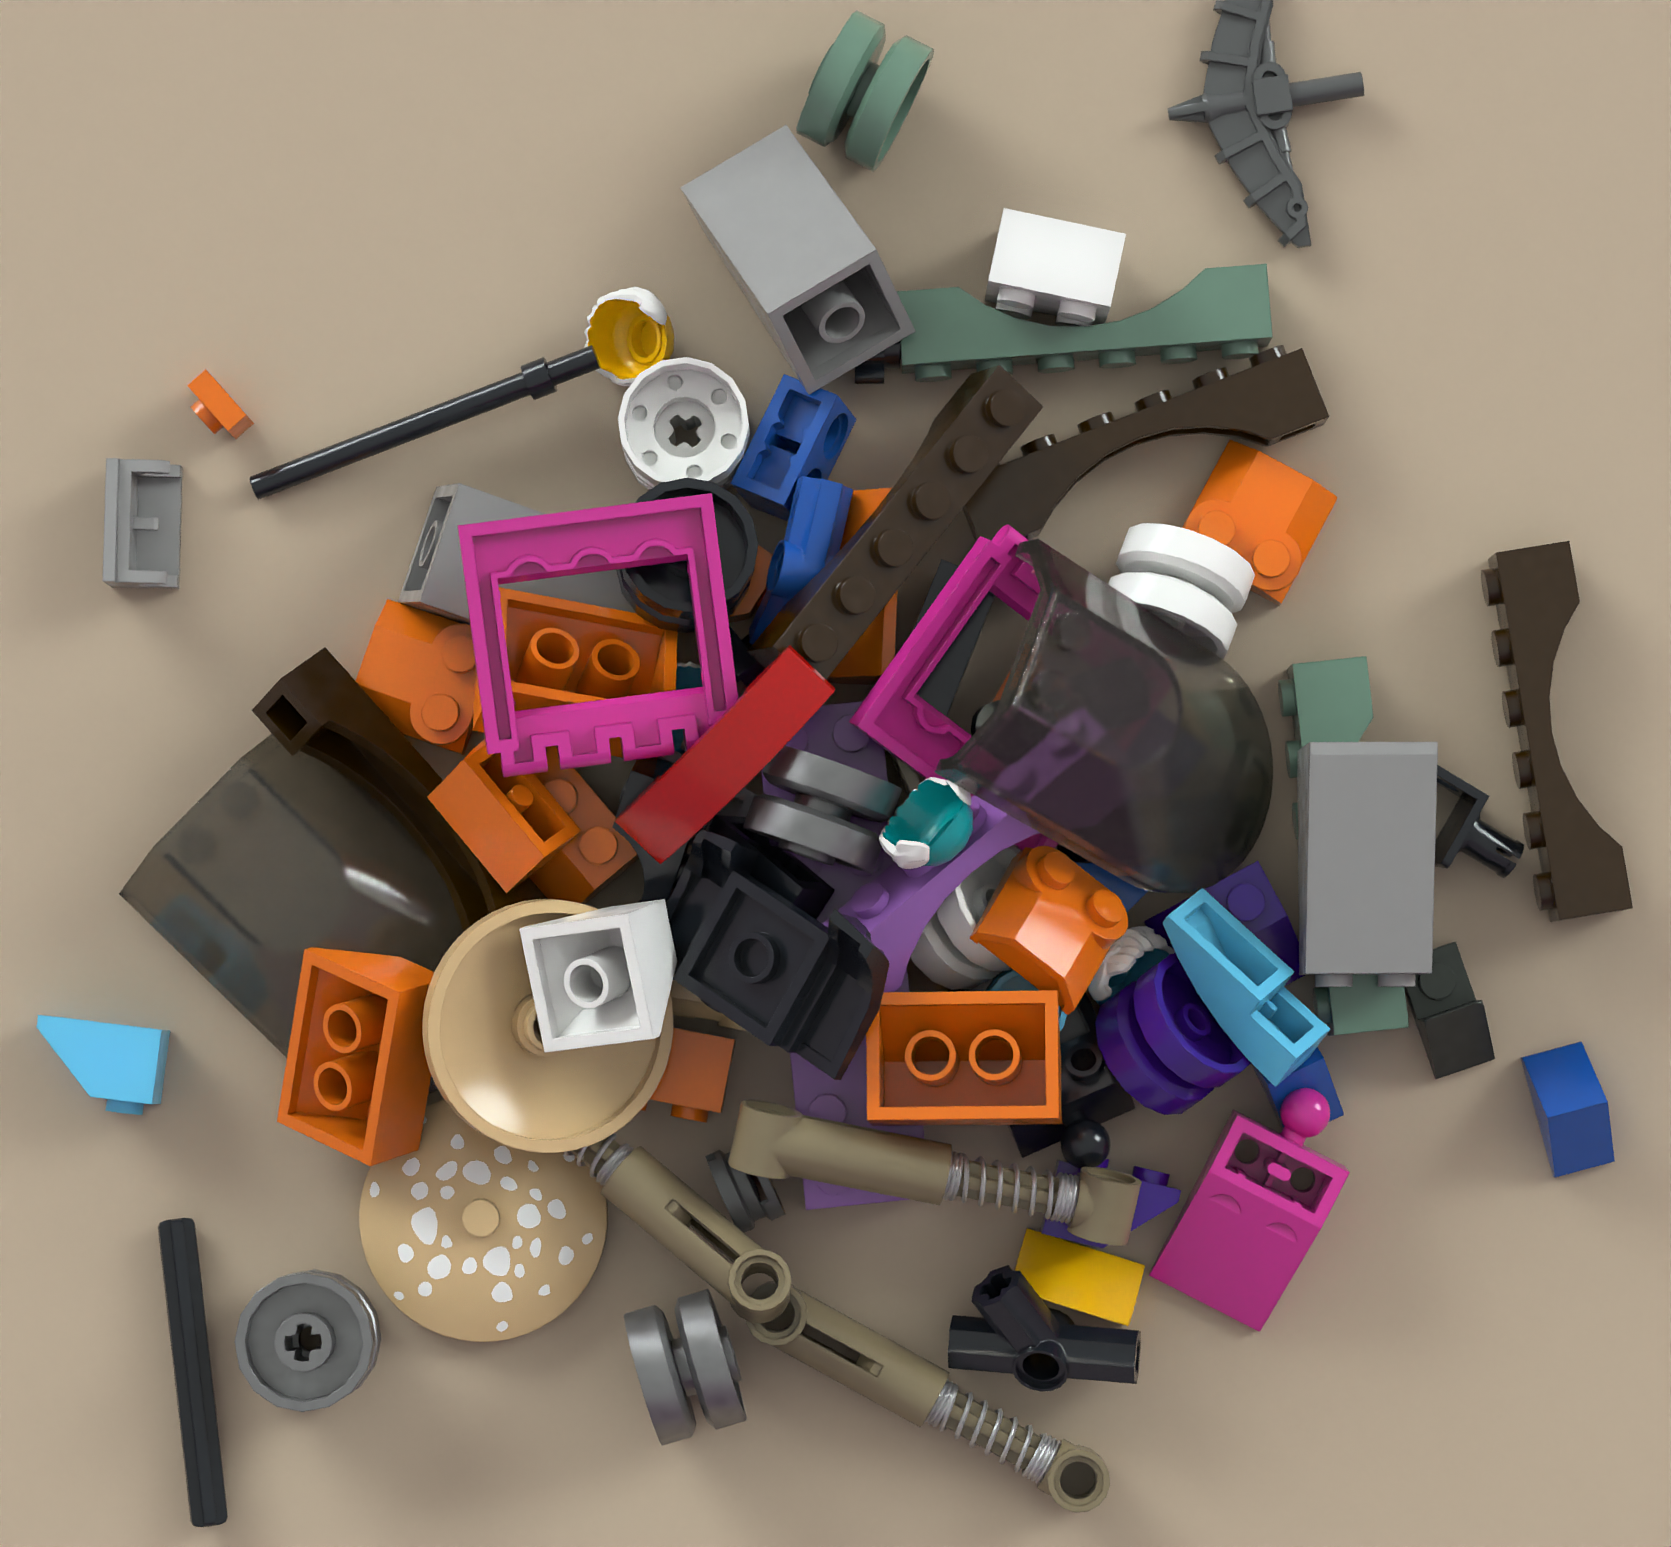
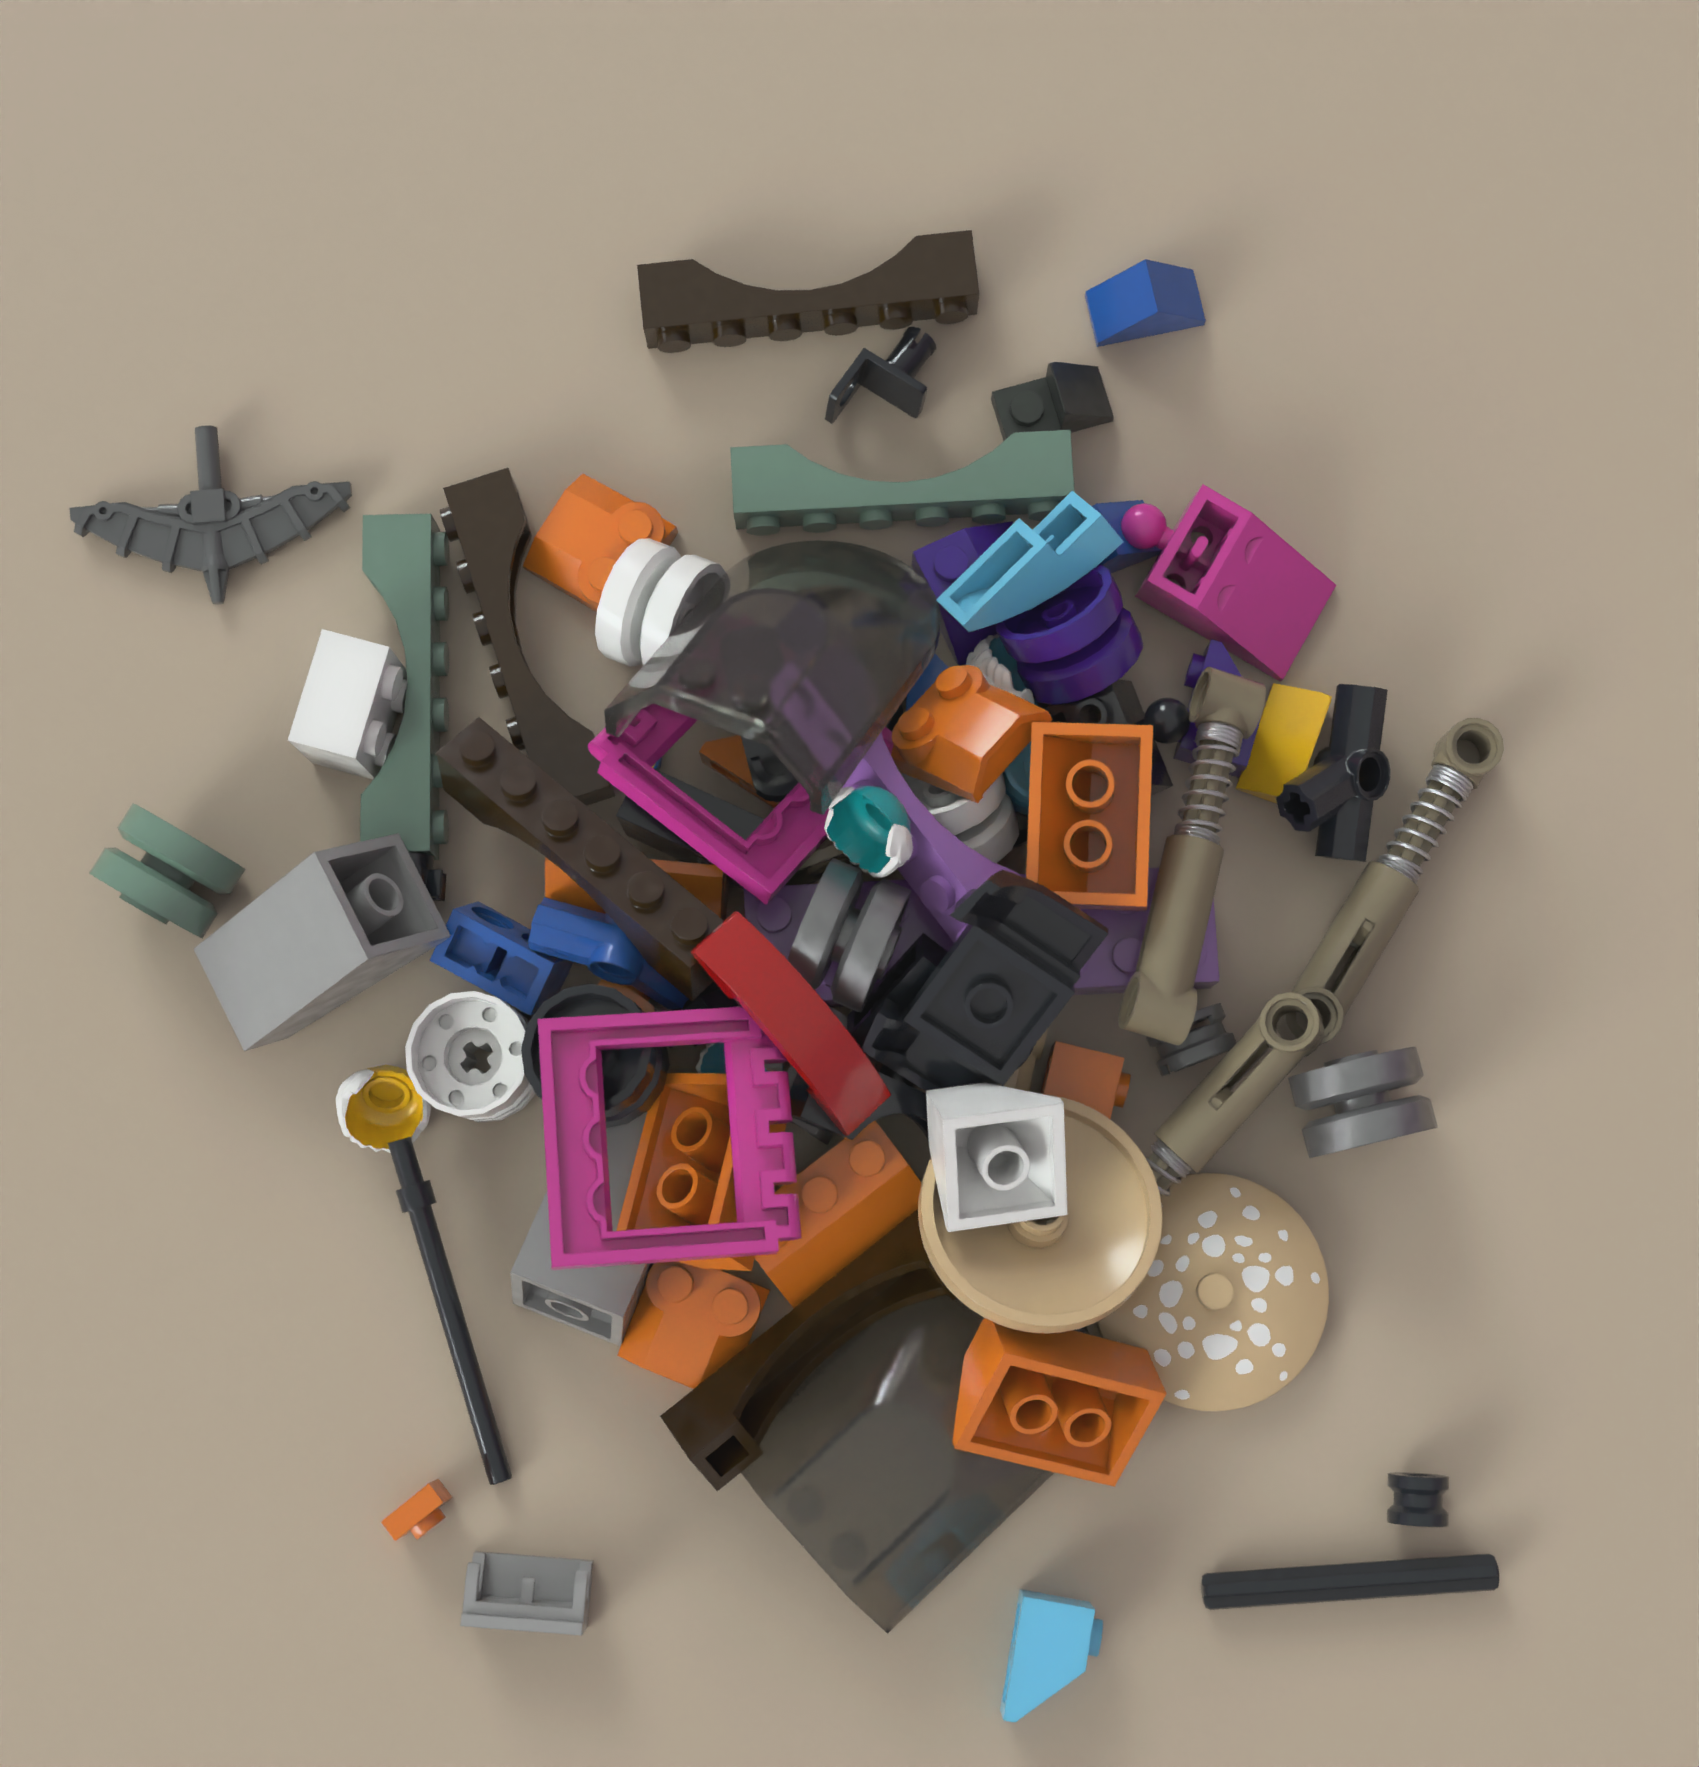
camera: 90 degrees left, 5 degrees down
(271, 1346) = (1361, 1471): flat silver wheel -> none
(278, 1440) = (1418, 1499): none -> black wheel
(503, 820) = (840, 1247): orange brick -> none
(1366, 860) = (918, 448): light grey slope -> none

